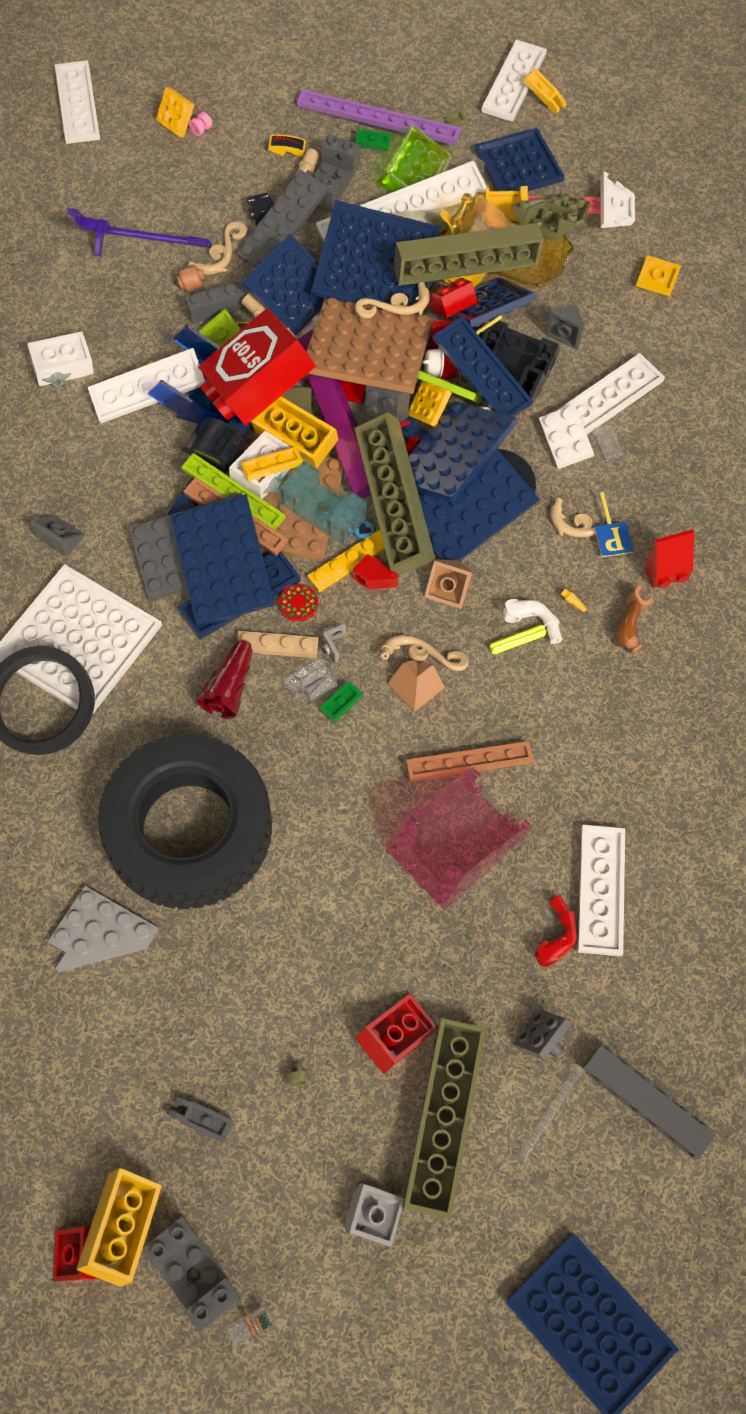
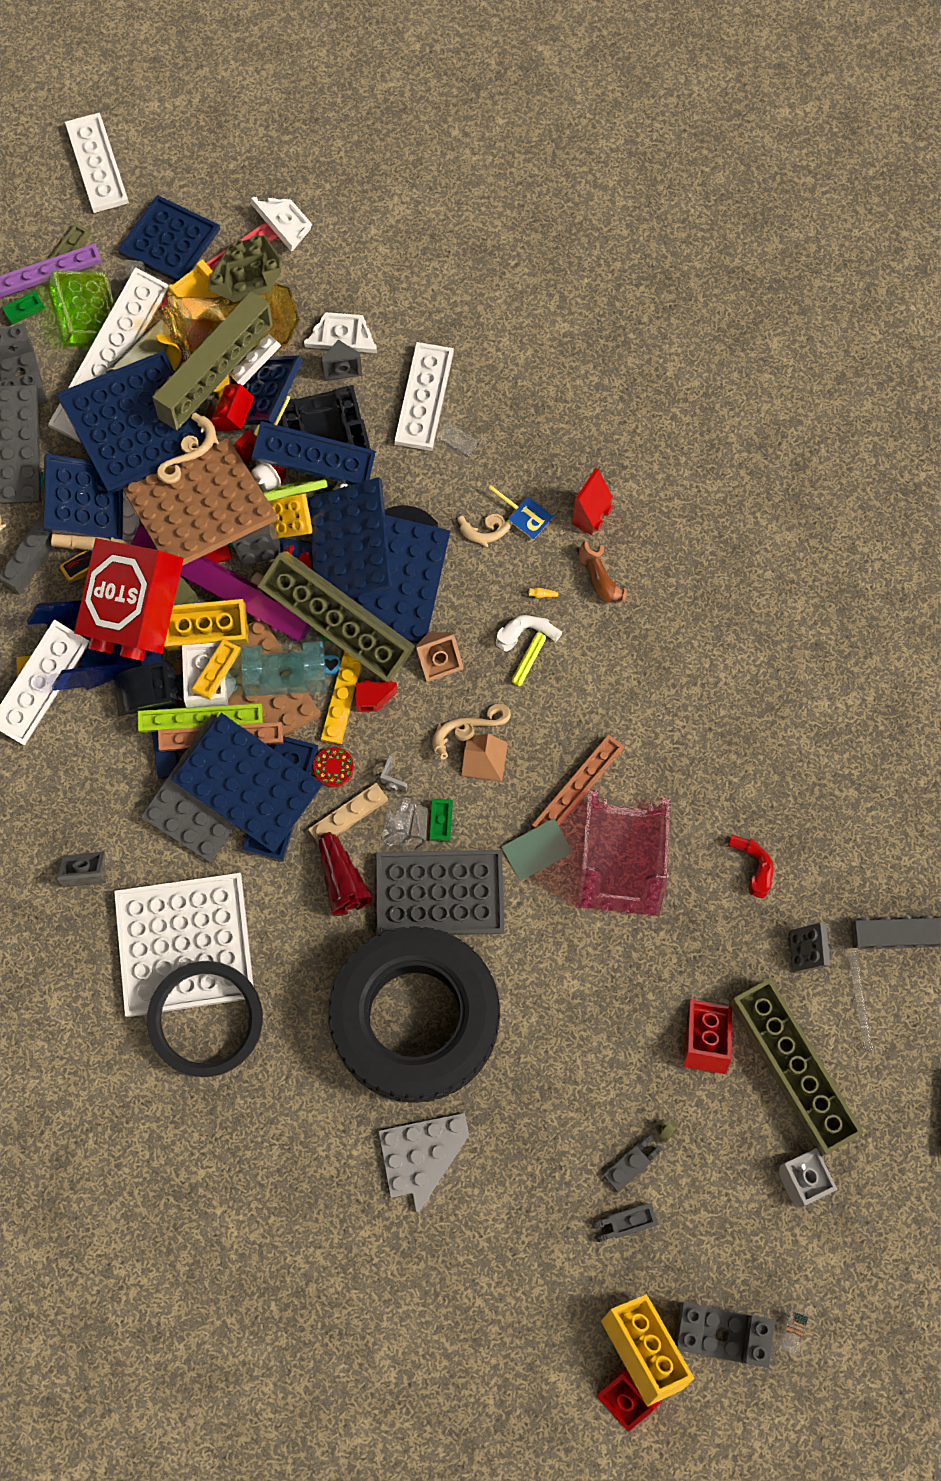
camera: 40 degrees left, 5 degrees up
(220, 328) = (56, 584): lime tile -> none
(246, 1078) = (630, 1165): none -> dark grey hinge
(294, 753) = (441, 891): none -> dark grey plate
(394, 781) = (537, 849): none -> sand green sticker
(503, 279) = (255, 360): none -> white plate
(545, 91) = (133, 155): yellow hinge -> none
(566, 436) = (421, 459): white plate -> none
(593, 308) = (347, 328): none -> white wing
(601, 890) = (756, 805): white plate -> none
(658, 275) = (372, 260): yellow plate -> none

